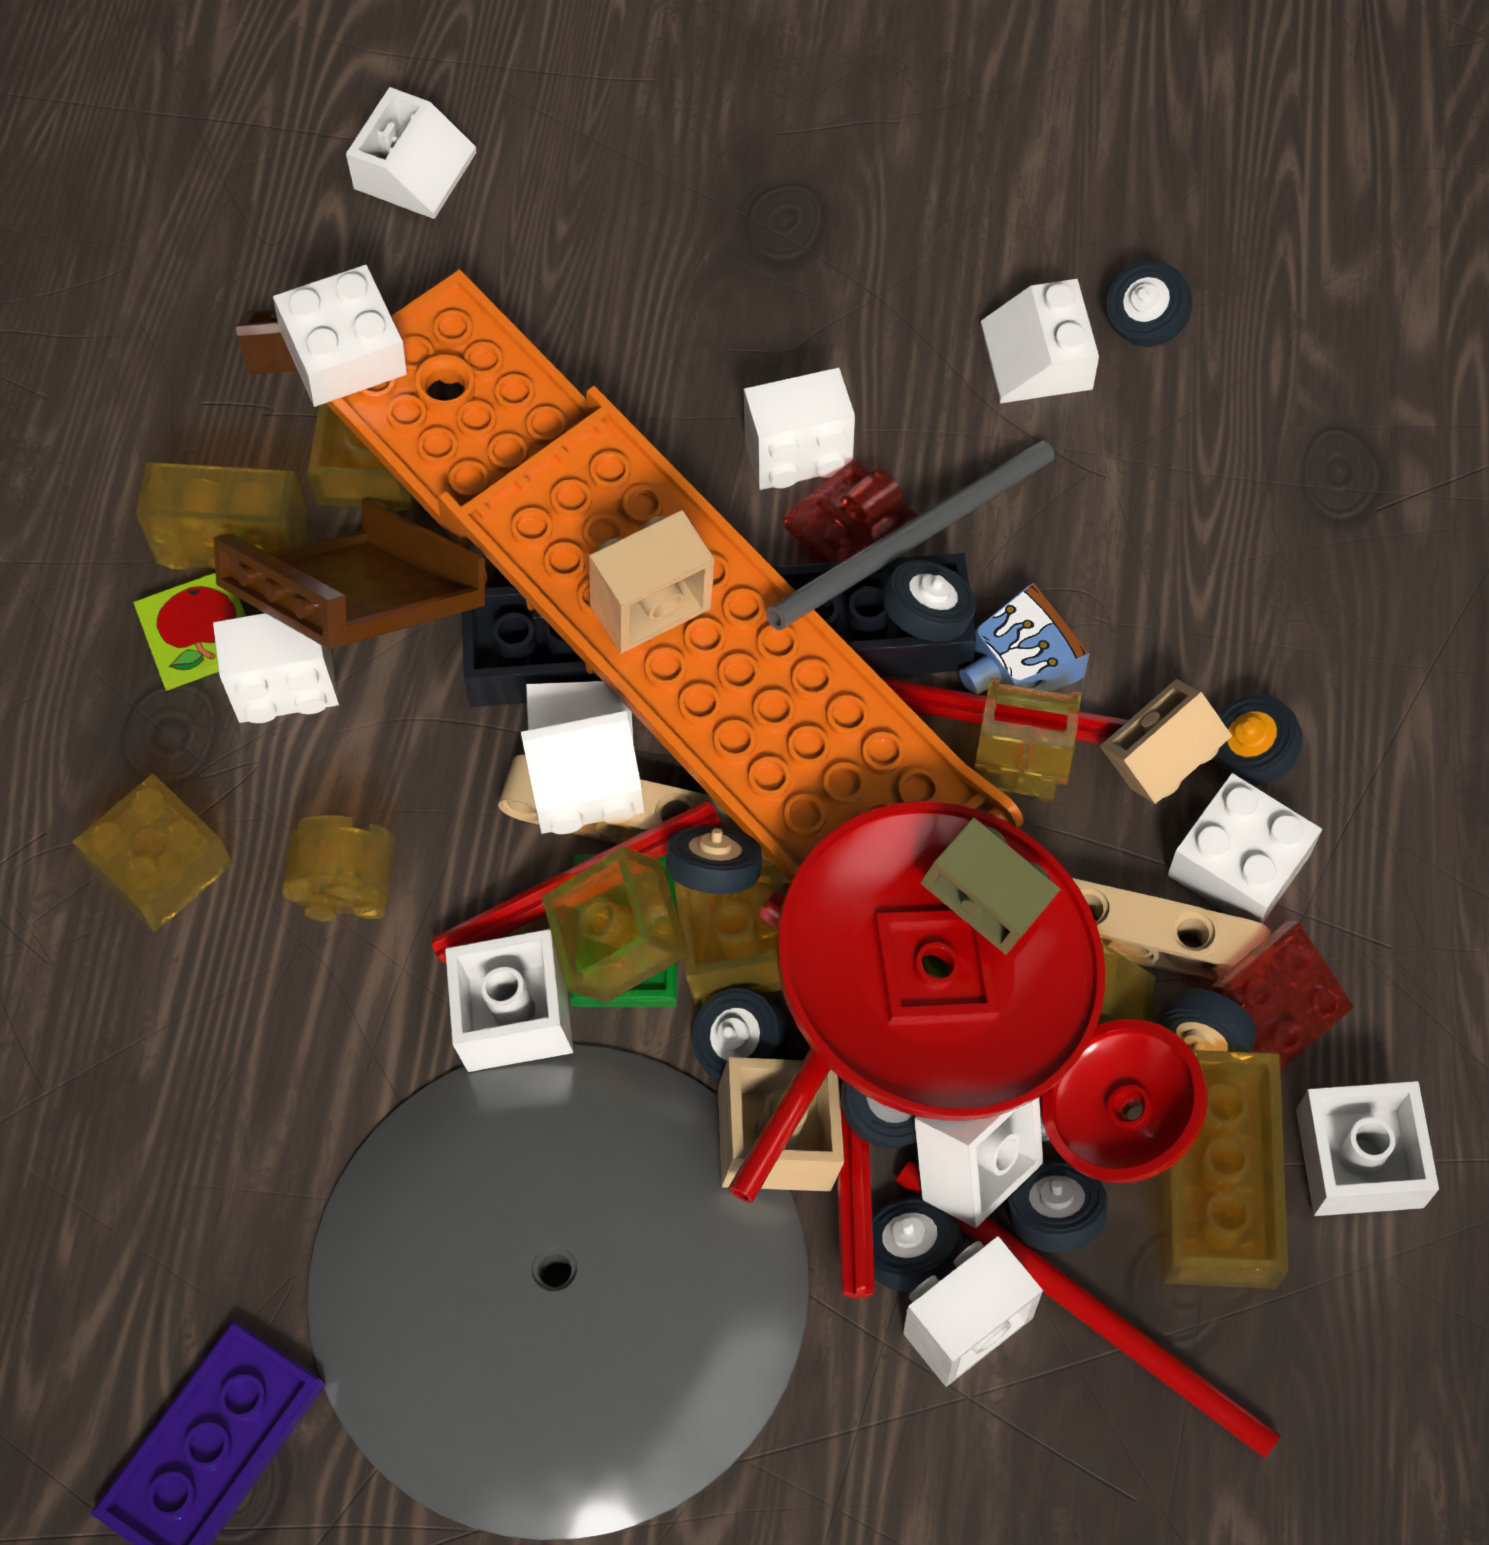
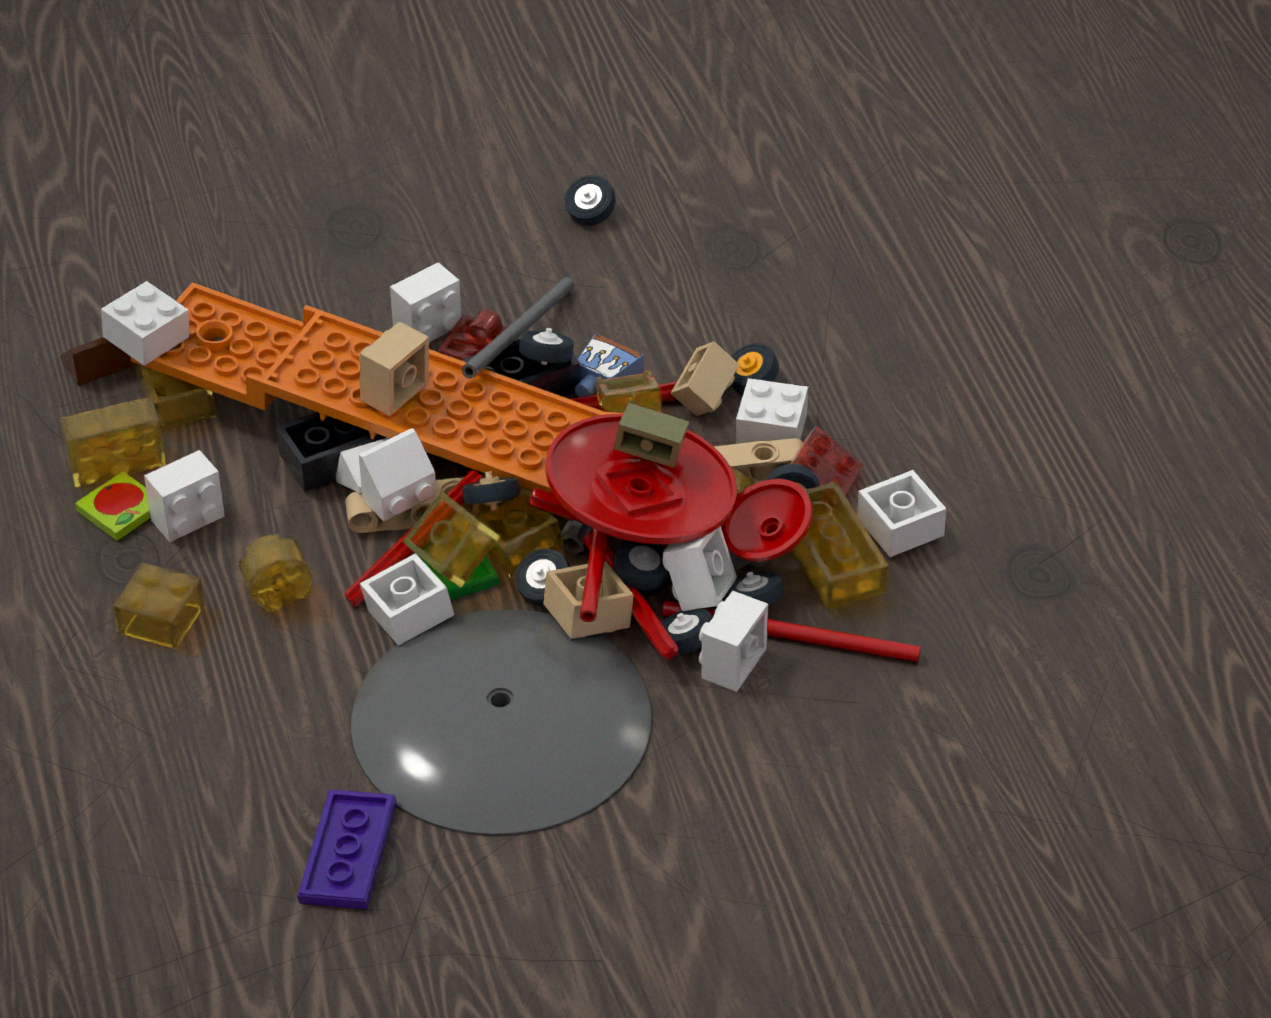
camera: 25 degrees left, 20 degrees down
(355, 582) = (212, 430): reddish brown panel -> none
(409, 154) = (119, 251): white slope -> none
(1041, 343) = (540, 234): white slope -> none

